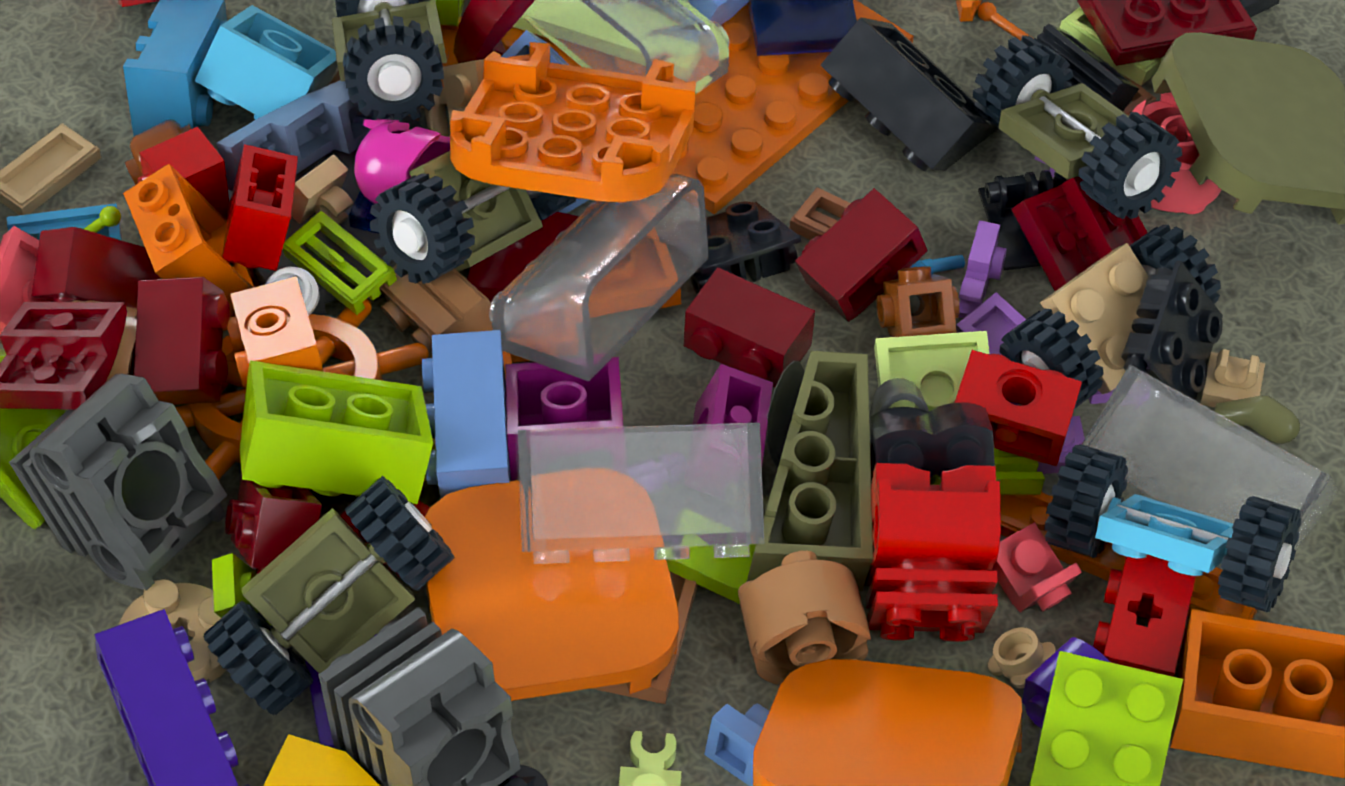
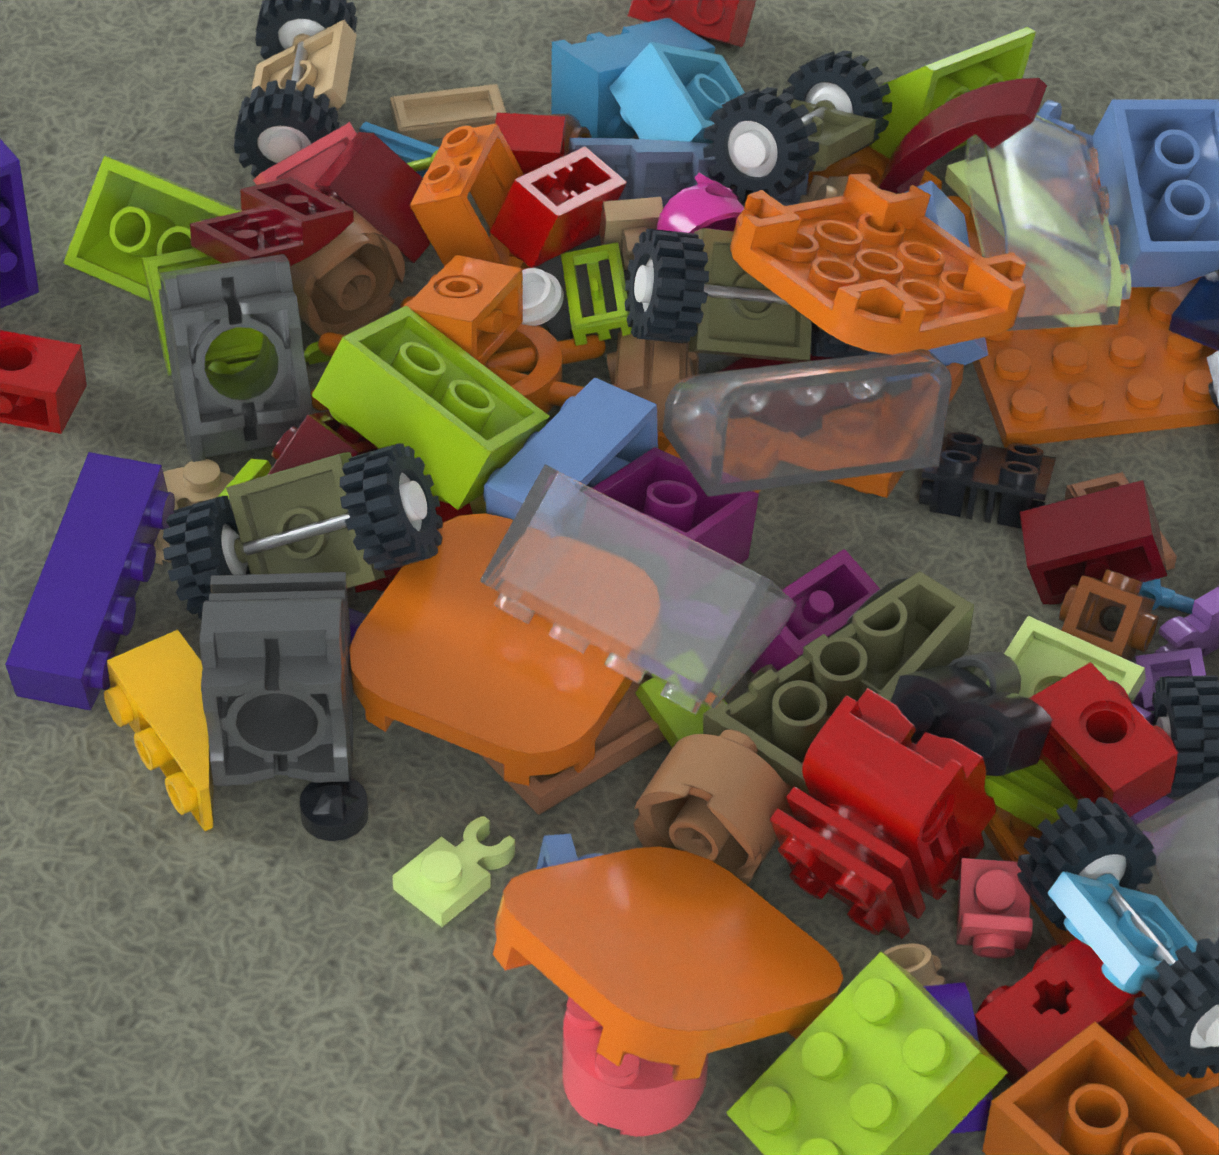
camera: 40 degrees right, 5 degrees down
(181, 339) = (382, 266): dark red brick -> none
(747, 326) = (917, 530): dark red brick -> none

